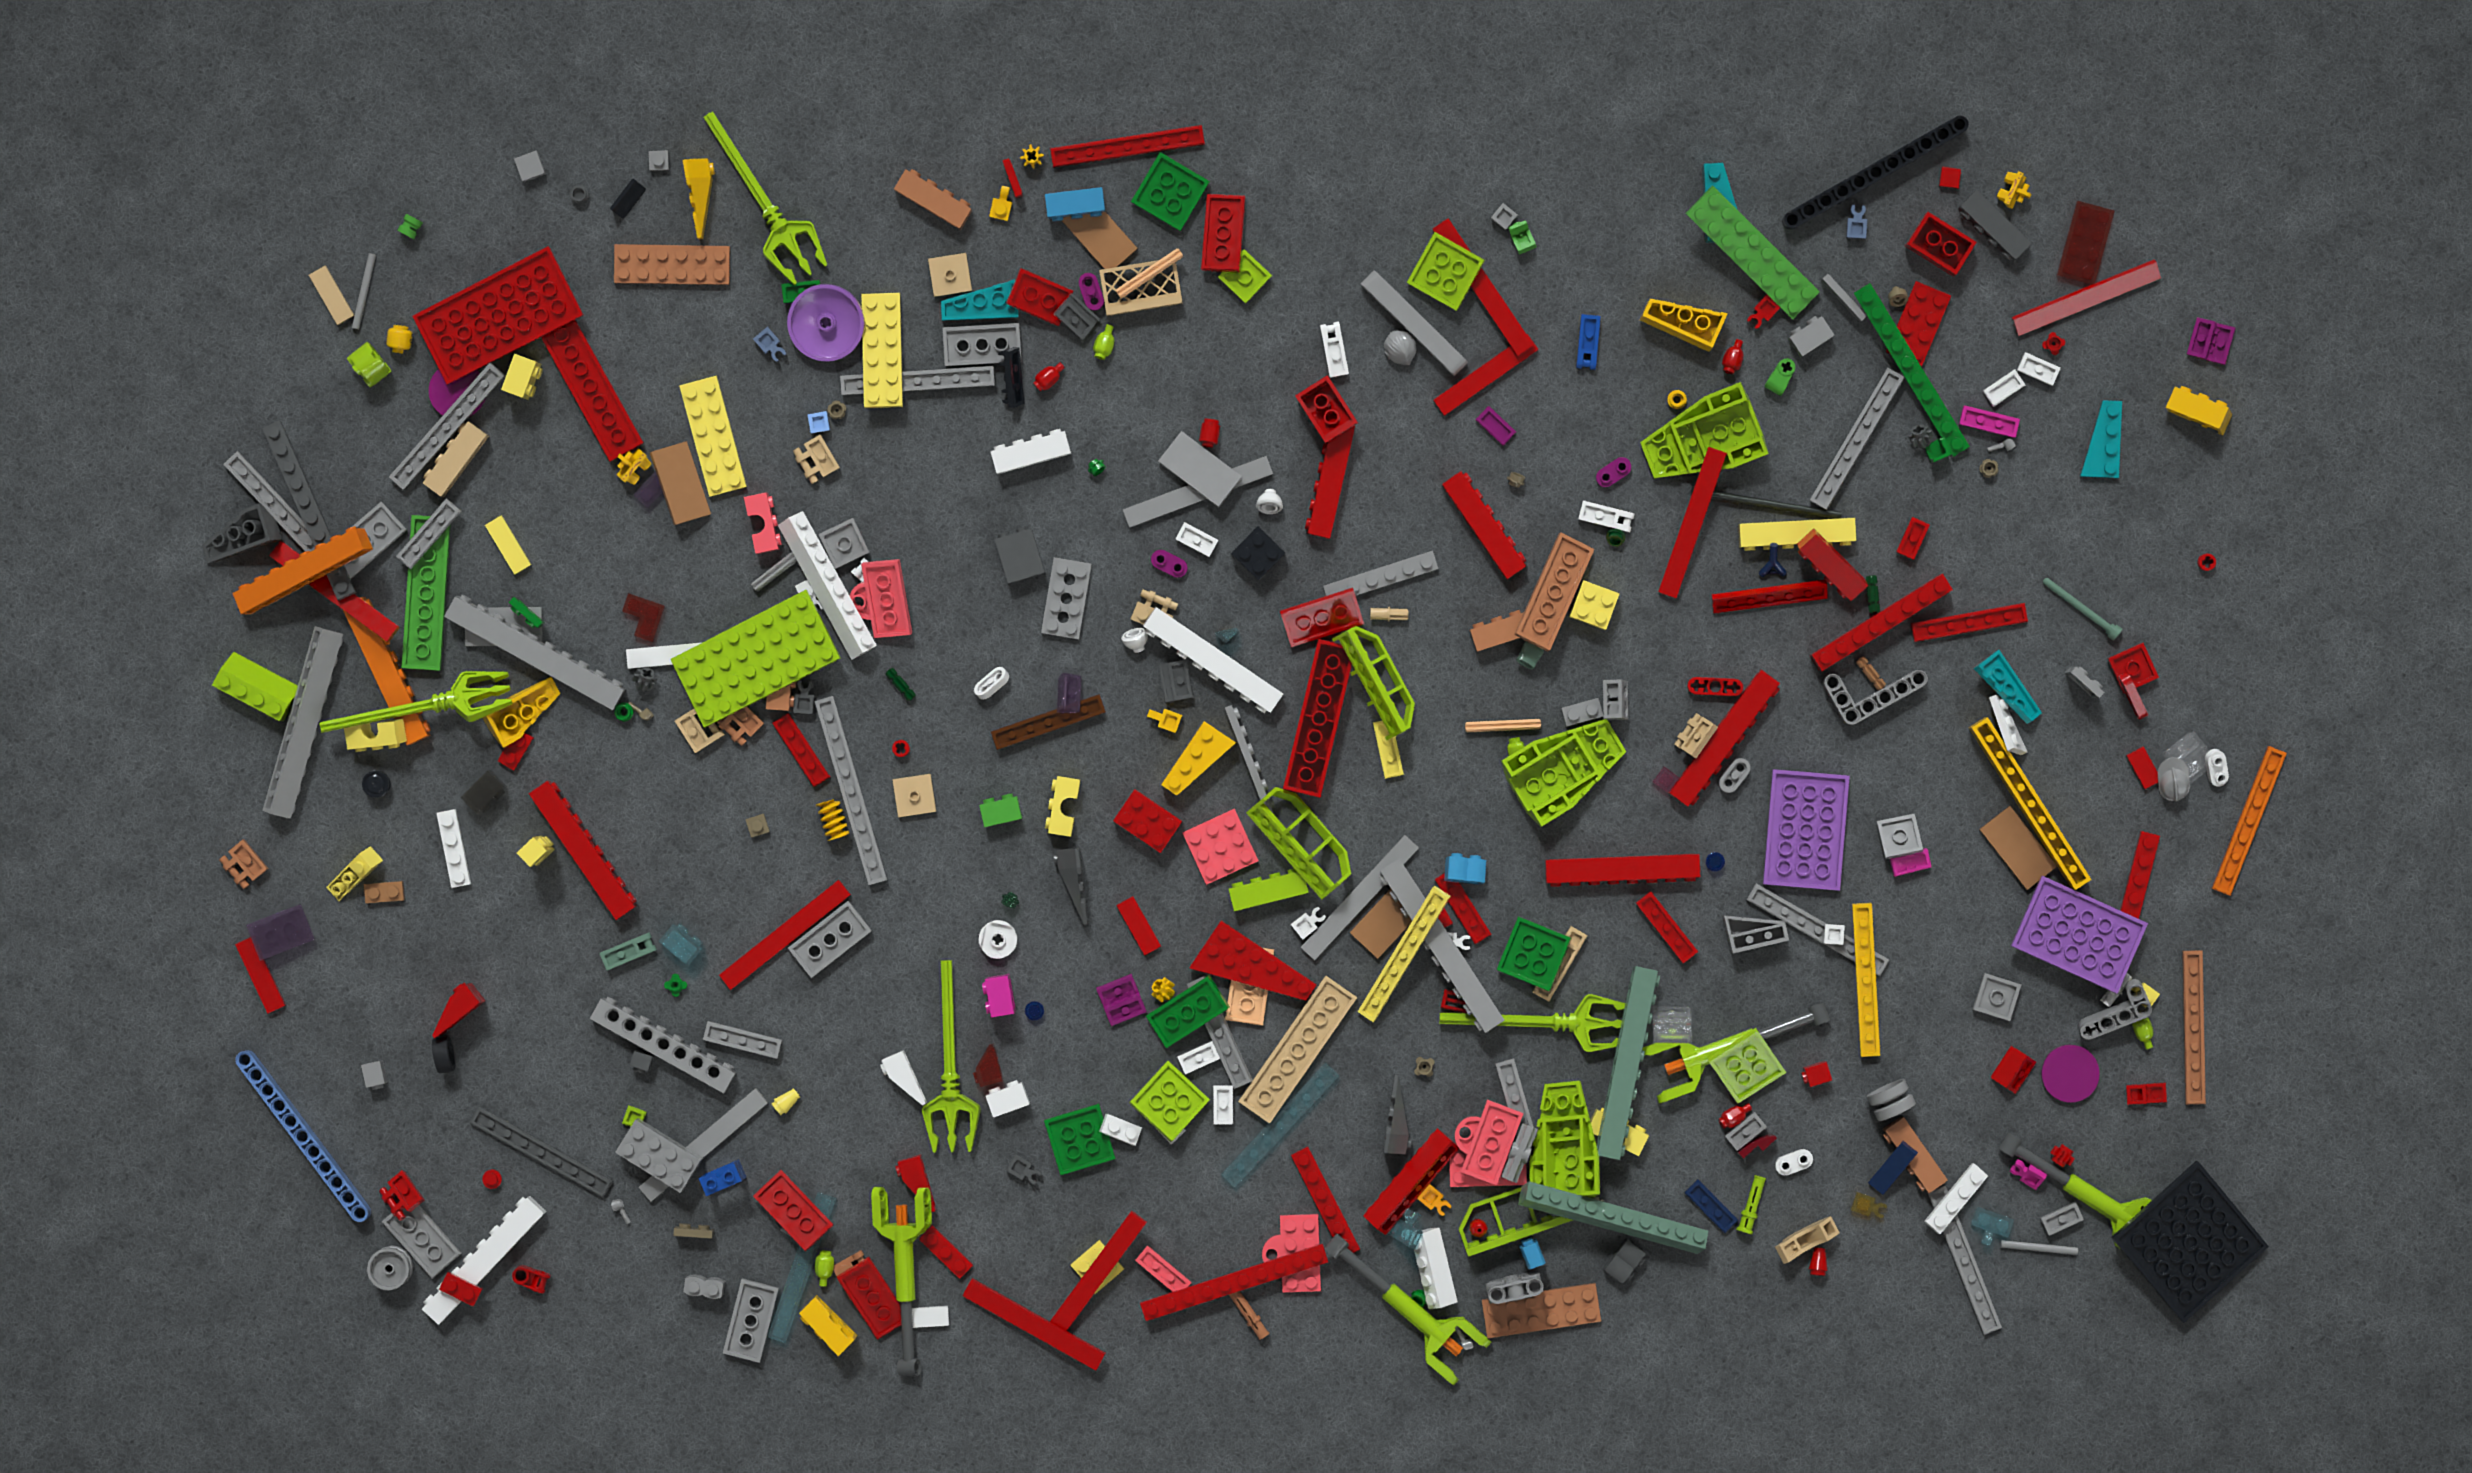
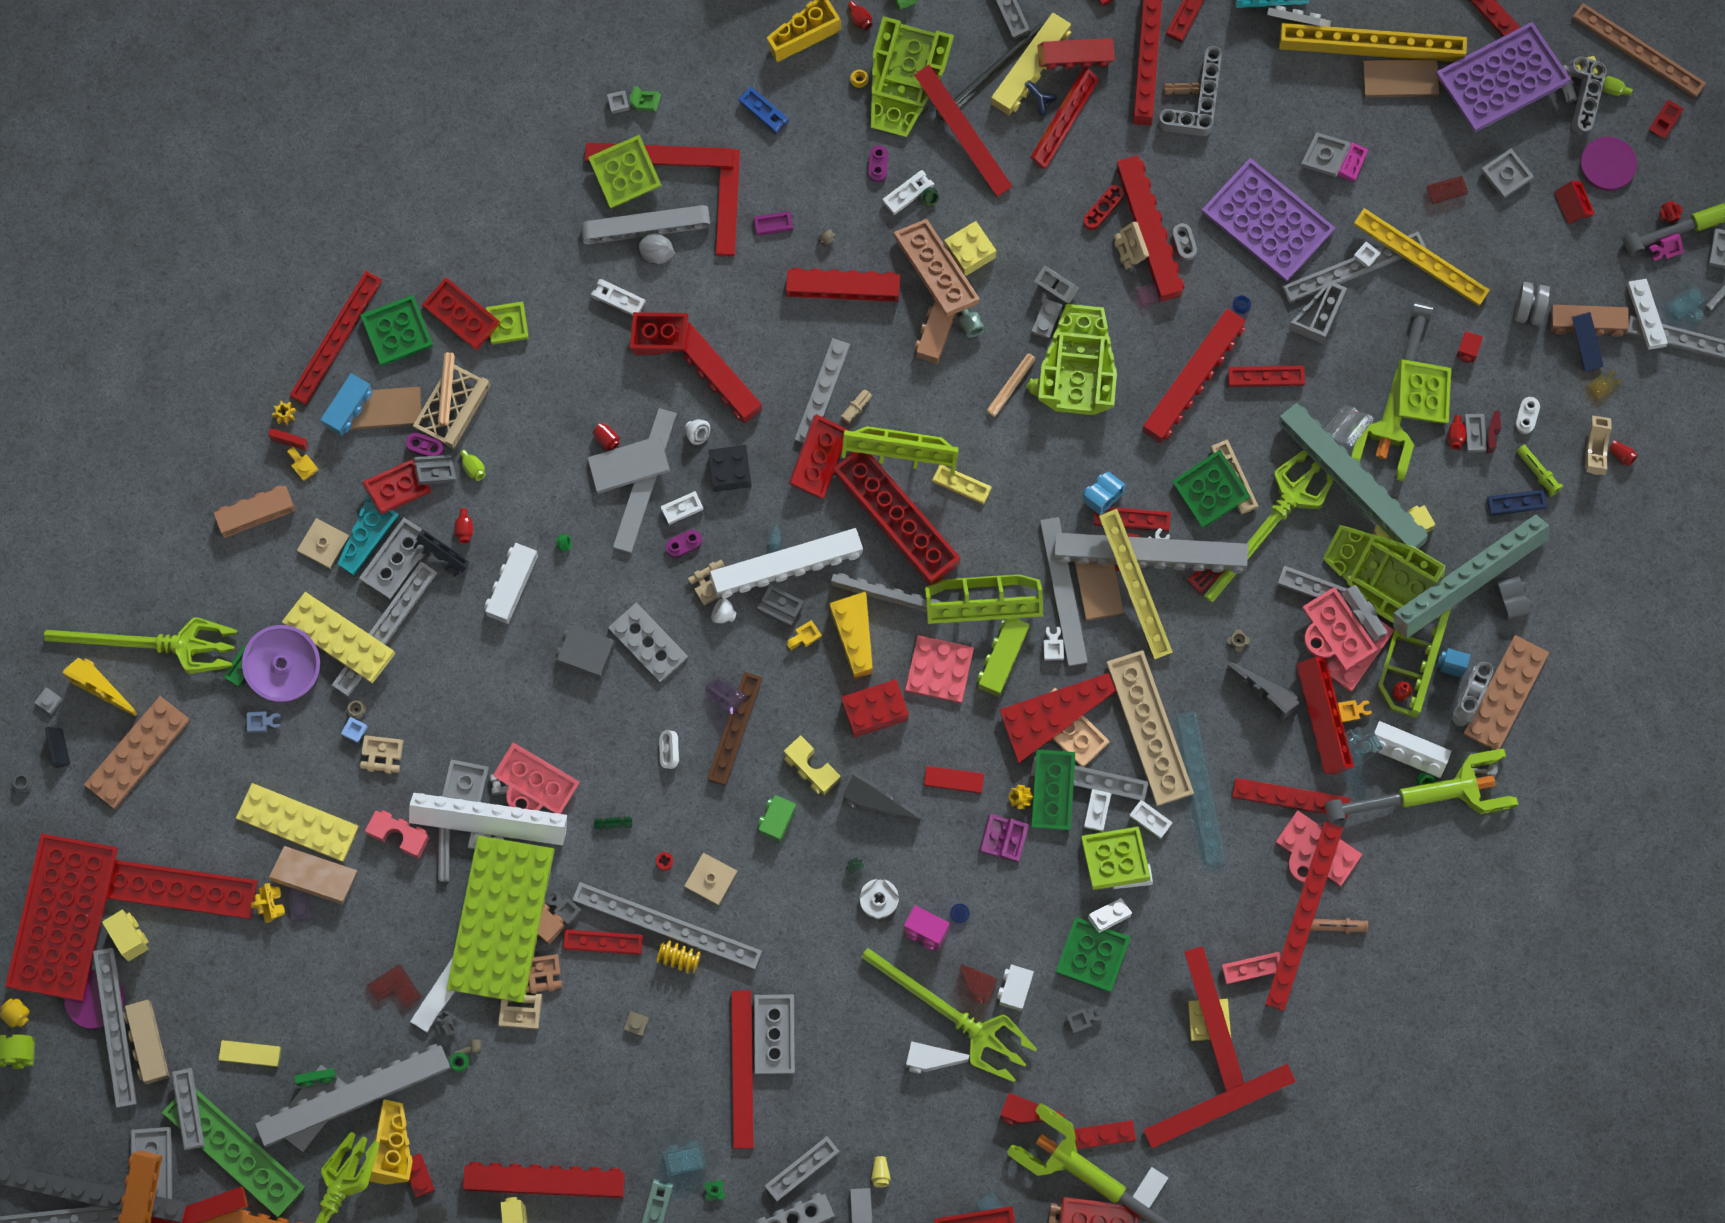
camera: 50 degrees left, 15 degrees down
(1873, 594) = (1123, 45): dark green axle -> none
(1944, 957) = (1447, 189): none -> clear red plate

